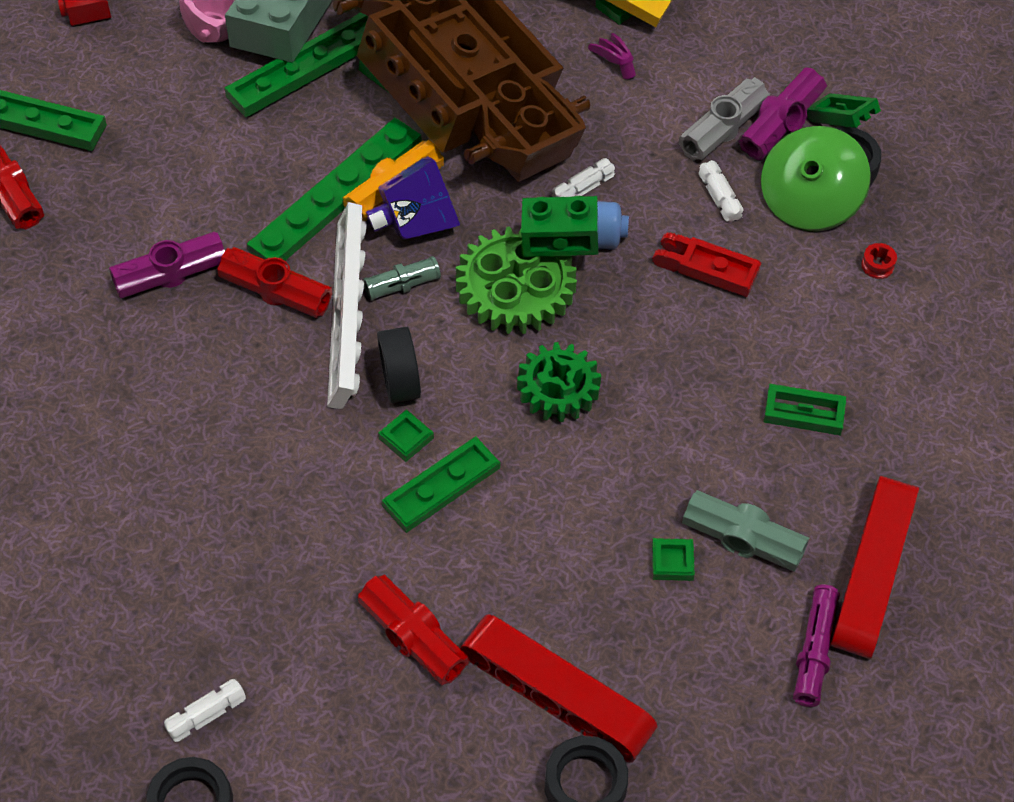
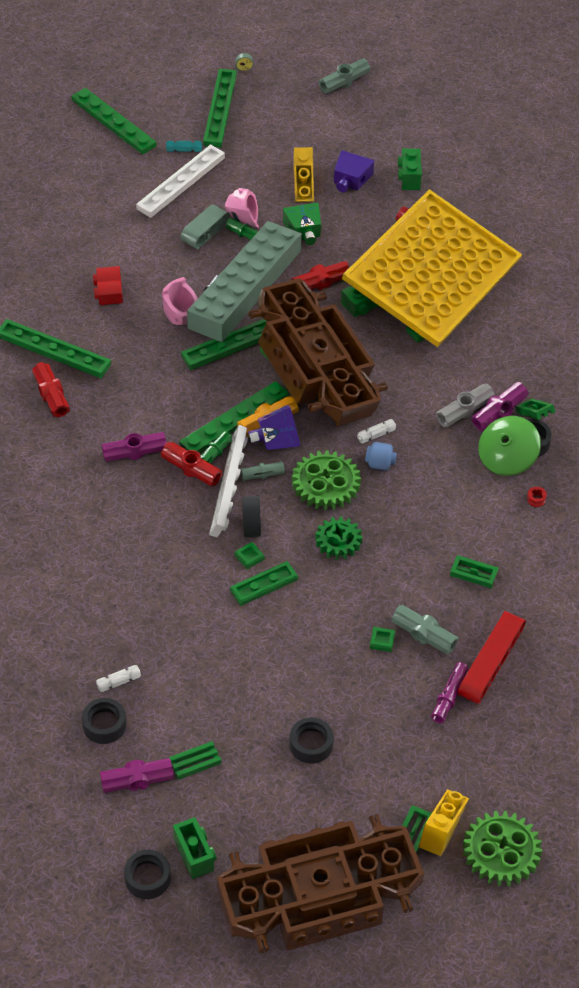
camera: 10 degrees right, 5 degrees down
(314, 246) = (216, 448): none -> green axle
(413, 629) = (234, 654): red piece -> none
(558, 685) = (306, 692): red beam -> none
(560, 226) = (354, 453): green brick -> none
(615, 53) = (409, 360): magenta piece -> none
(707, 263) = (437, 485): red hinge -> none
(721, 191) = (454, 446): white axle -> none

